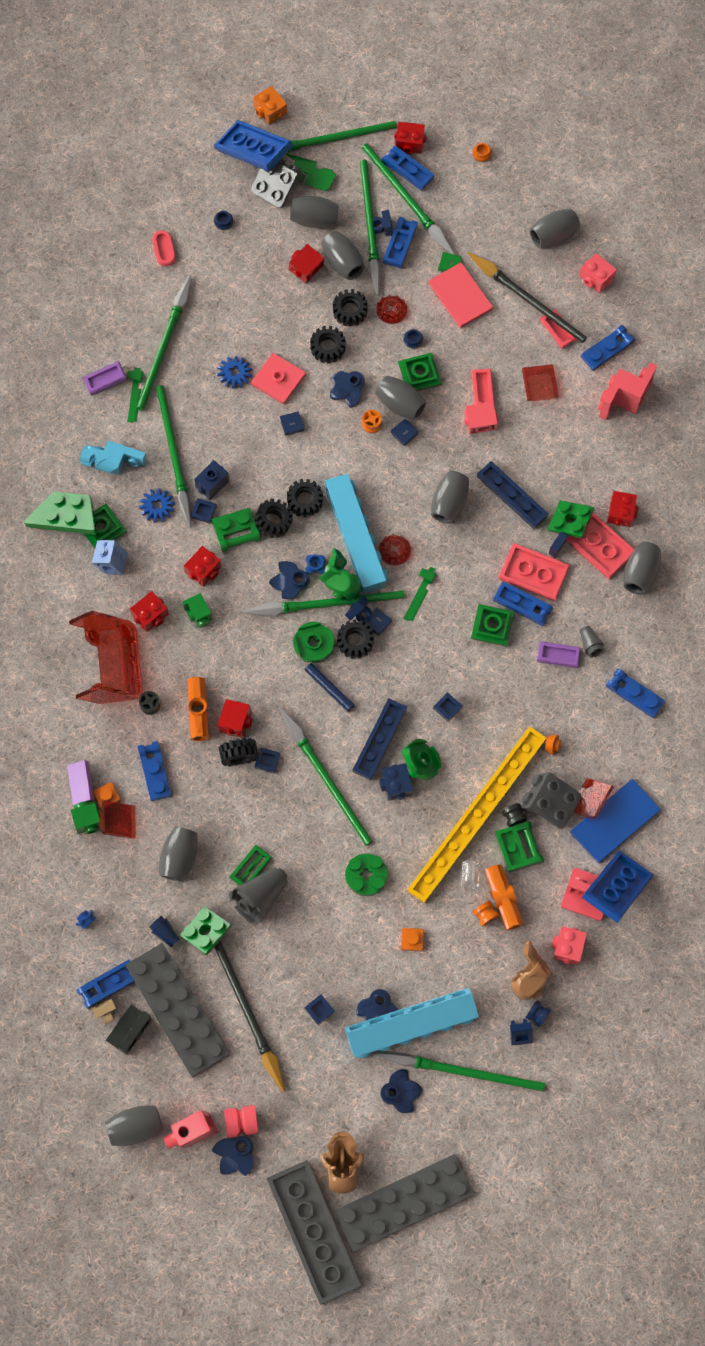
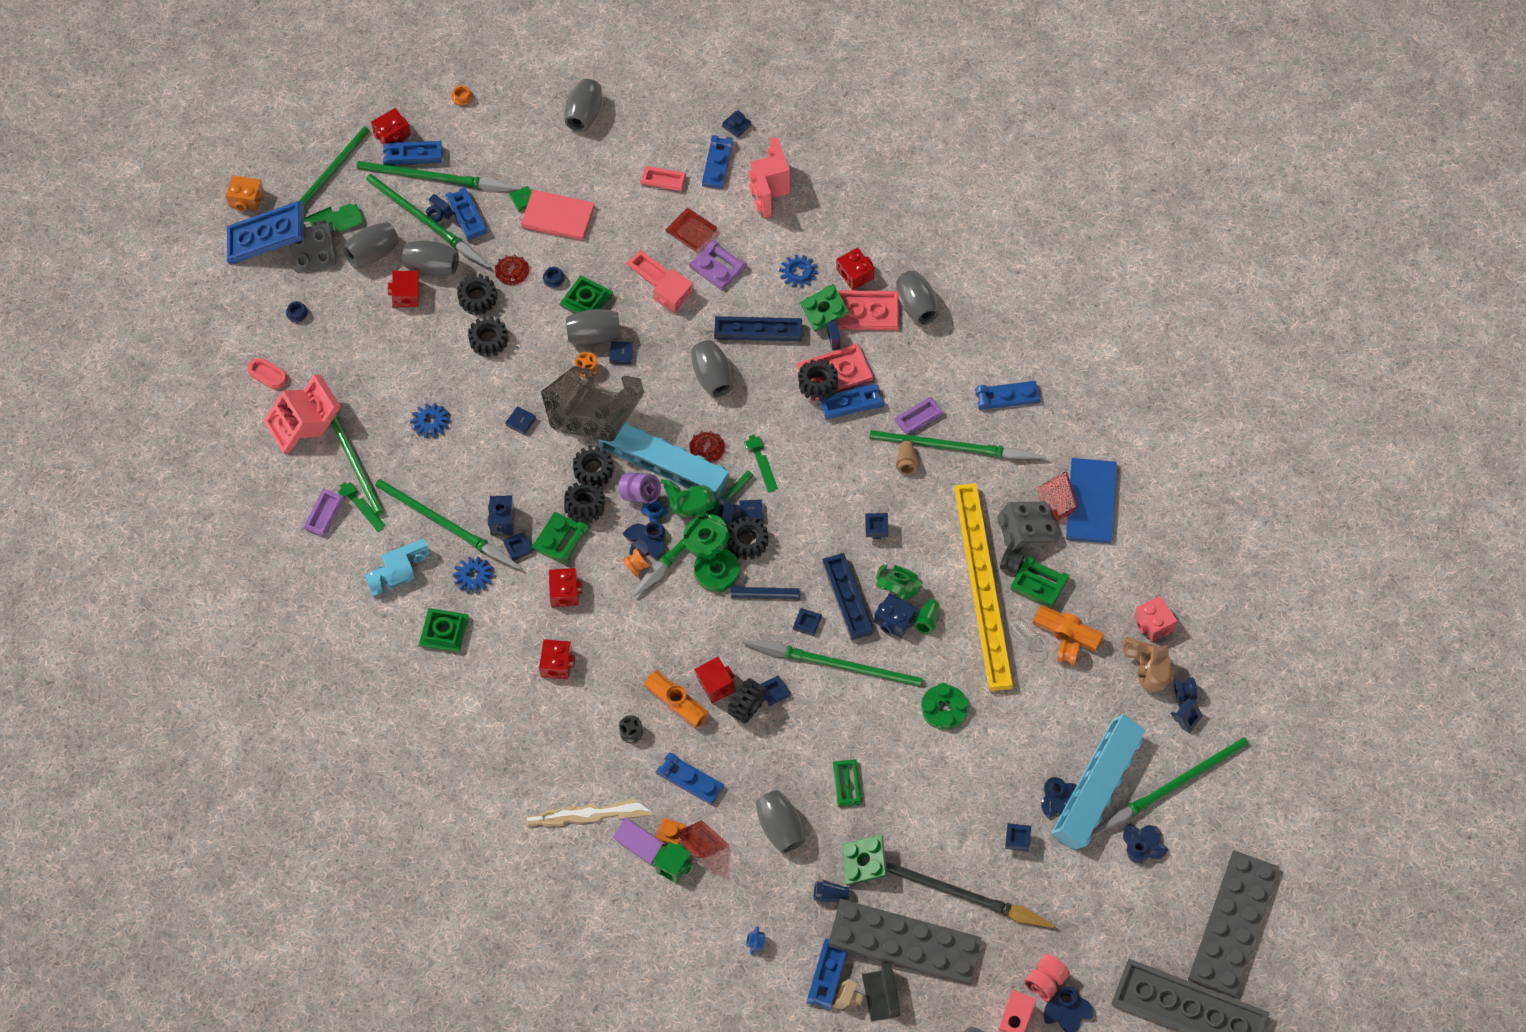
camera: 40 degrees left, 10 degrees down
(64, 513) = (402, 643): wing -> none
(70, 736) = (589, 813): none -> tan sword
(110, 557) = (479, 644): medium blue head -> none
(117, 657) = (564, 718): clear red windscreen -> none
(154, 296) = (301, 413): none -> coral bracket
(198, 610) = (596, 624): green brick -> none
(259, 894) = (878, 796): dark grey cone -> none
(265, 590) = (636, 562): none -> orange wheel
(278, 378) = (472, 395): coral plate -> none
(317, 540) = (639, 487): none -> medium lavender wheel
(328, 623) = (706, 547): none -> green plate
(336, 733) = (807, 622): none -> dark blue tile
(340, 453) = (589, 411): none -> clear smoke windscreen
(342, 1163) = (1159, 933): medium nougat head -> none
(345, 389) = (537, 359): dark blue plate -> none
(412, 939) = (1031, 723): orange plate -> none
(417, 802) = (927, 617): none -> green cone
(491, 270) = (562, 177): pearl dark grey piece -> none
(497, 635) = (841, 447): green piece -> none
(512, 578) = (818, 370): none -> black tyre
(516, 679) = (906, 459): none -> medium nougat cone
(525, 424) = (715, 271): none -> medium lavender plate
(553, 744) = (986, 484): orange plate -> none
(573, 900) = (1128, 570): coral bracket -> none
(590, 473) = (801, 263): none -> blue gear
(592, 644) = (934, 385): dark grey cone -> none
(593, 736) = (990, 450): none -> green piece
(597, 273) = (652, 112): coral head -> none
(617, 886) = (1148, 539): blue tile -> none
(649, 331) = (736, 124): none -> dark blue tile

